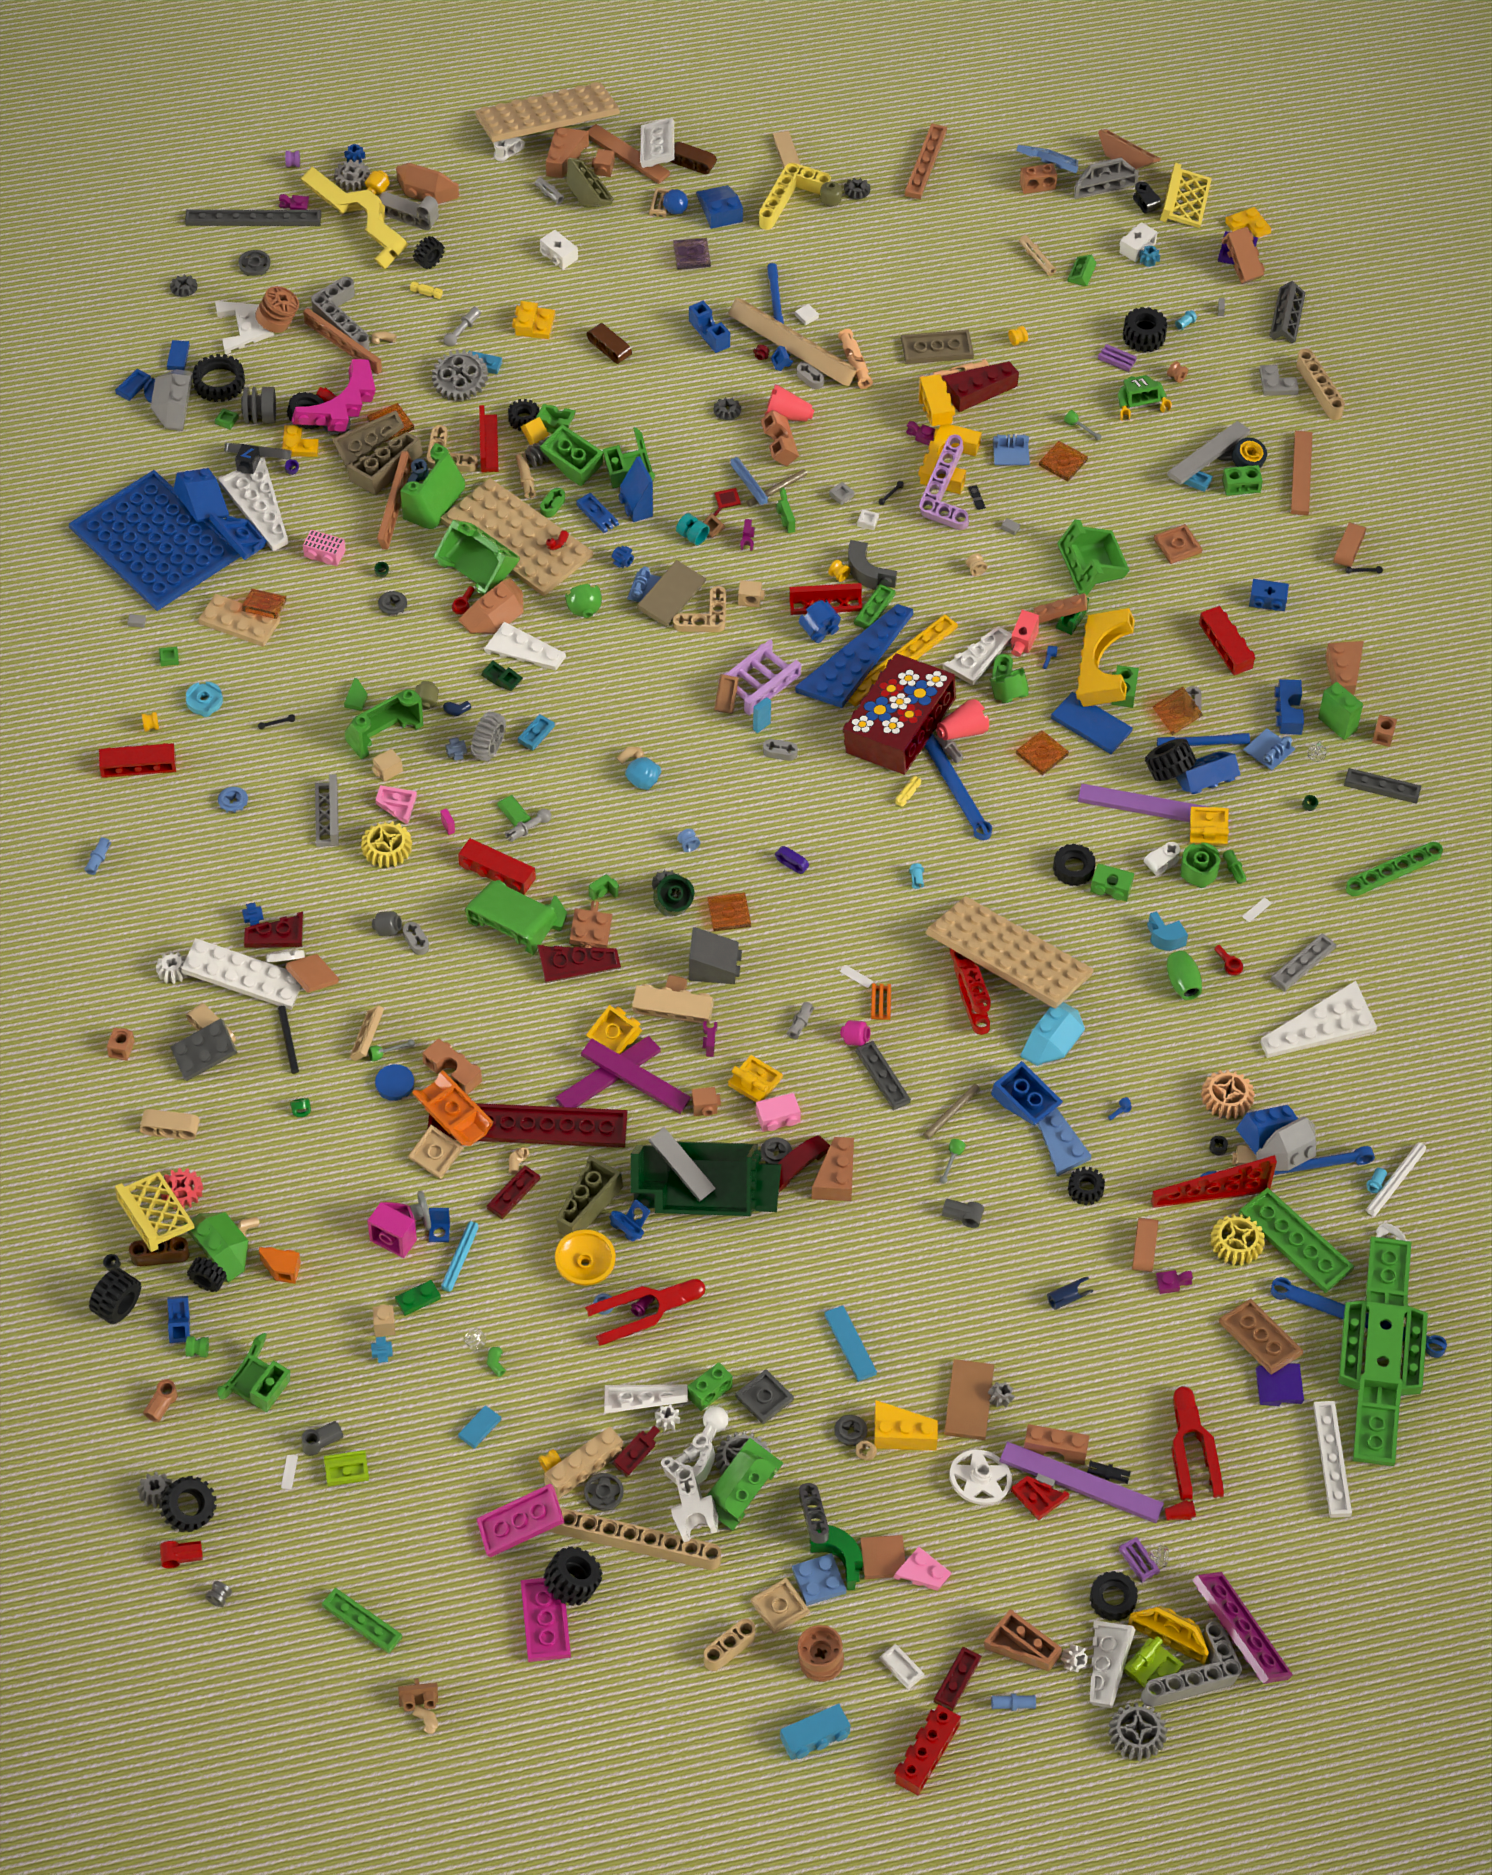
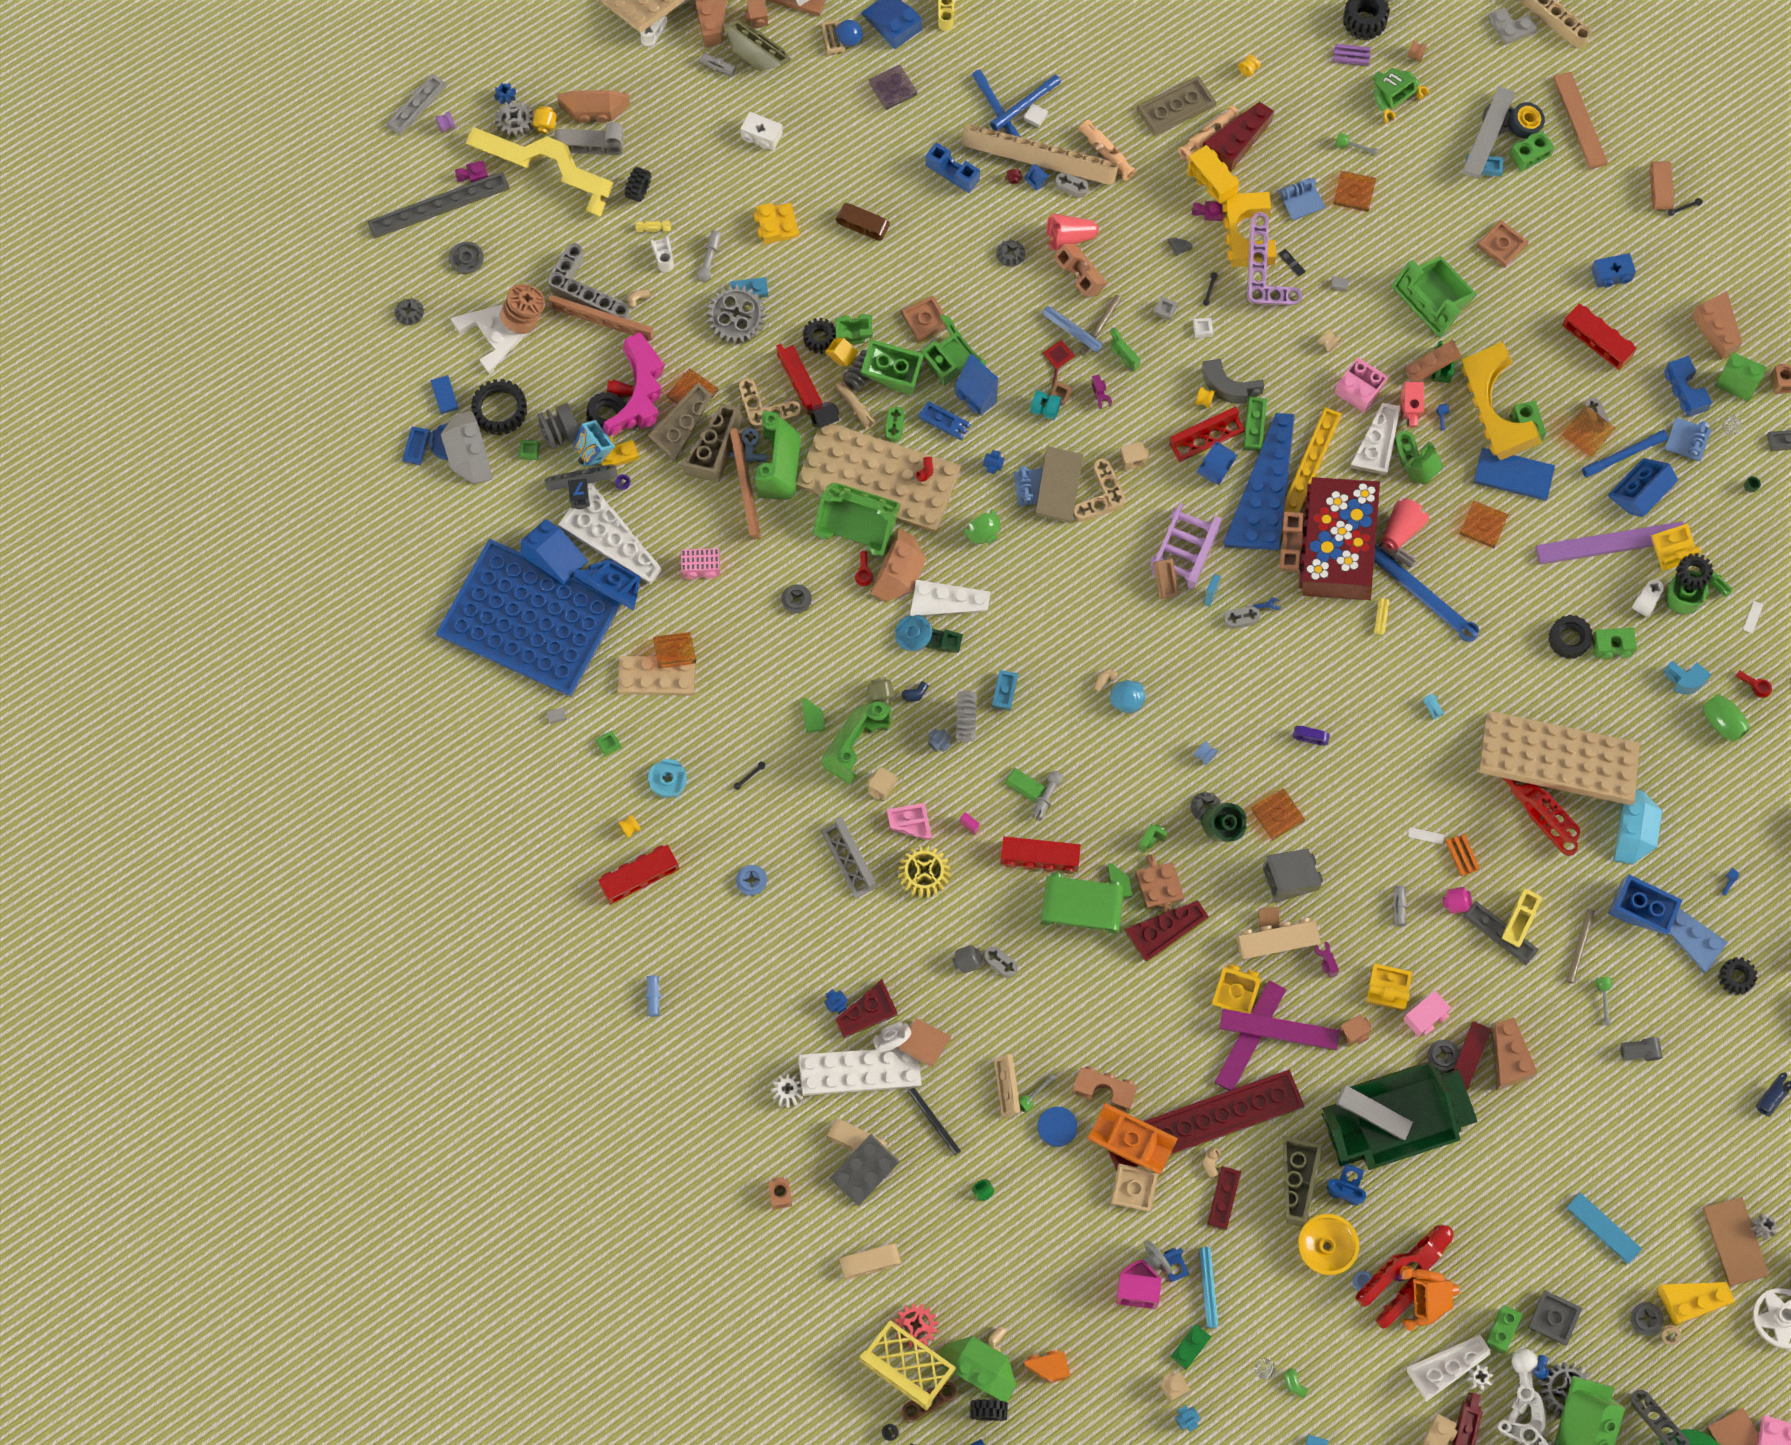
camera: 20 degrees left, 15 degrees up
(276, 140) = (416, 104): none -> light grey tile
(279, 425) = (592, 444): none -> medium azure torso
(379, 567) = (765, 562): dark green hinge -> none
(422, 312) = (663, 251): none -> white piece
(479, 661) = (913, 633): none -> dark azure tile
(493, 471) = (824, 414): none -> black brick
(622, 433) = (924, 318): none -> nougat tile
(657, 1331) = (1431, 1296): none -> orange torso
(728, 1430) = (1541, 1370): none -> blue arm
(794, 301) = (1004, 118): none -> blue piece
(812, 747) = (1270, 603): none -> blue hand
(859, 688) = (1292, 543): none -> nougat arch
(881, 451) = (1179, 246): none -> dark grey tile
(907, 1066) = (1521, 917): none -> light yellow slope
(985, 606) = (1360, 385): none -> bright pink slope
(1170, 759) = (1612, 492): black tyre -> none
(1208, 851) = (1690, 560): none -> black tyre

